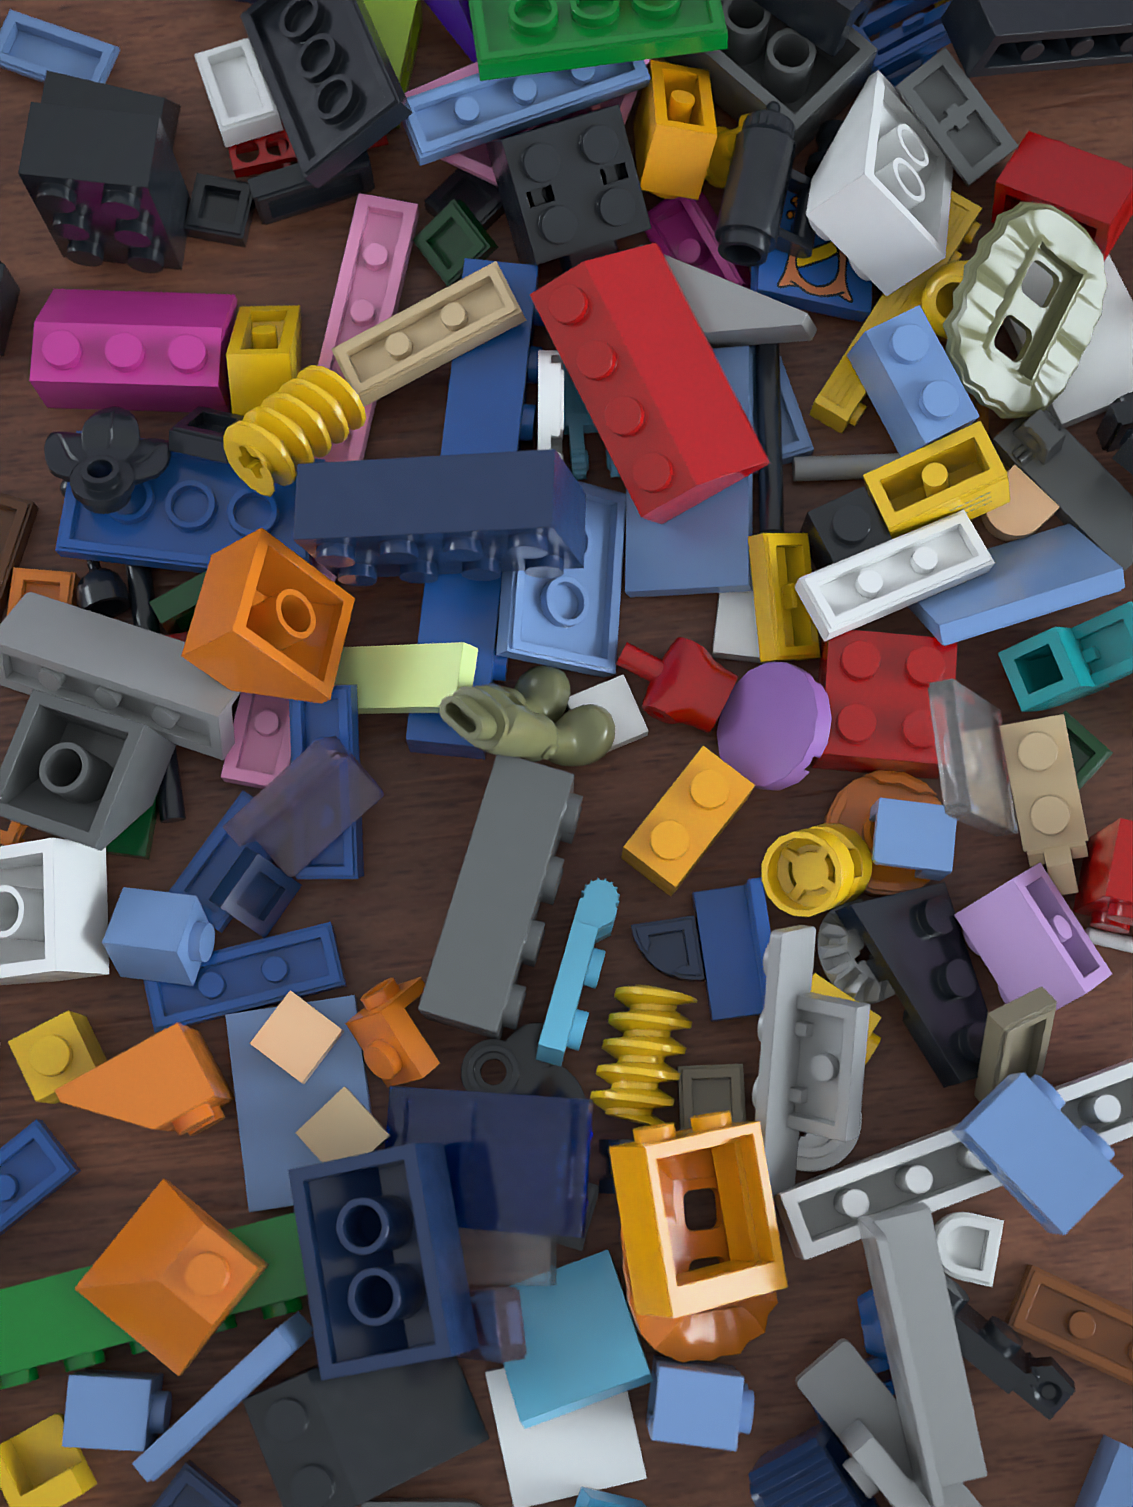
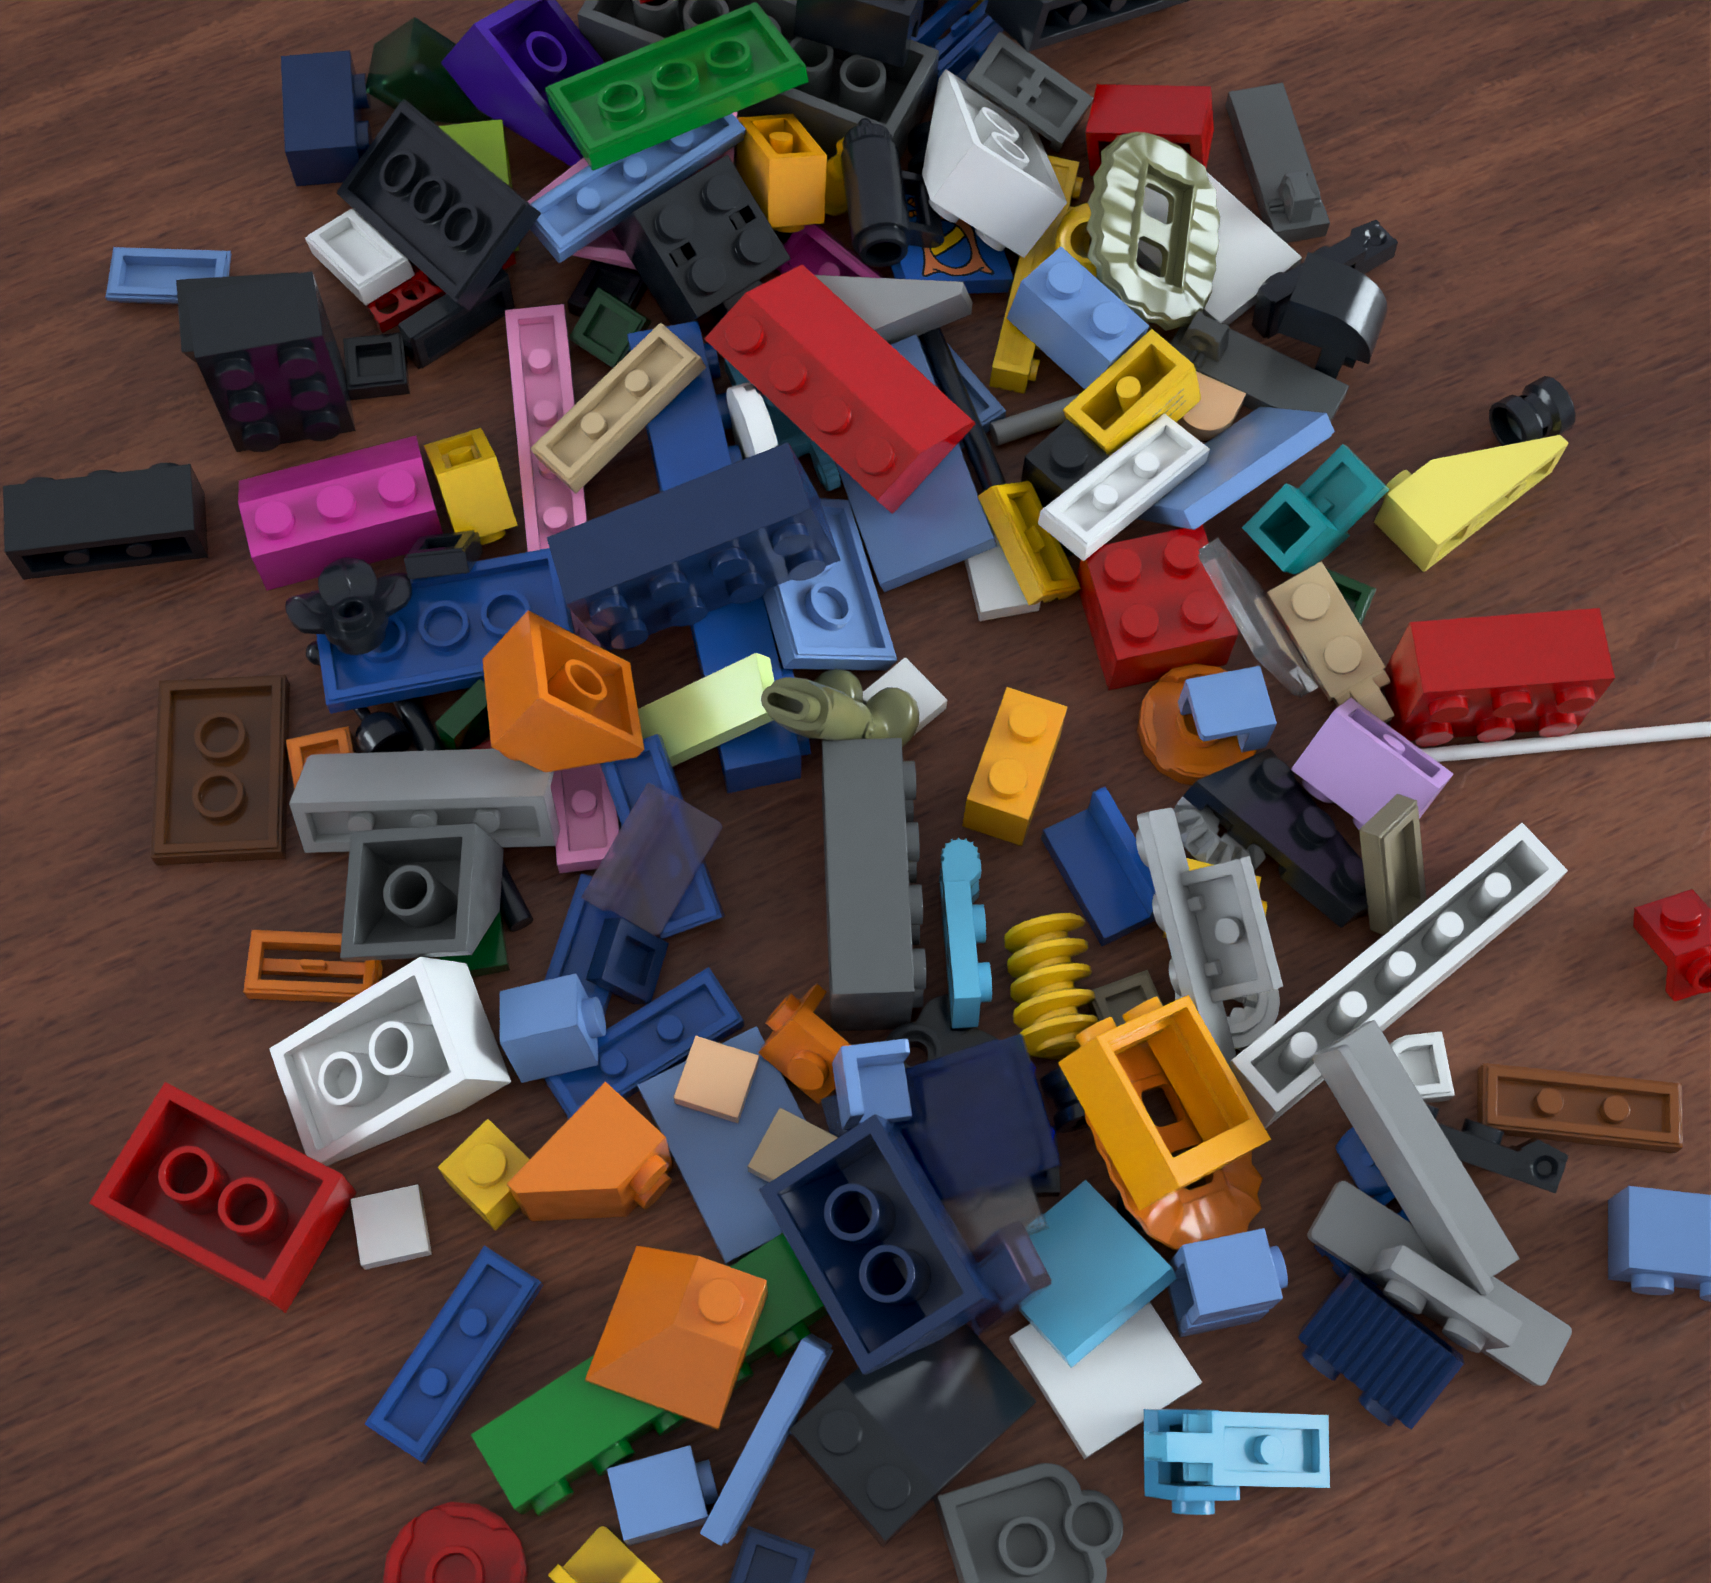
camera: 20 degrees left, 10 degrees down
(292, 428) = (514, 526): yellow piece -> none
(431, 1103) = (872, 1082): none -> medium blue panel
(671, 947) = (1039, 888): dark blue tile -> none
(683, 685) = (963, 649): red piece -> none
(774, 725) = (1064, 651): medium lavender tile -> none
(802, 864) = (1150, 765): yellow wheel -> none
(1039, 1151) = (1452, 936): medium blue brick -> none

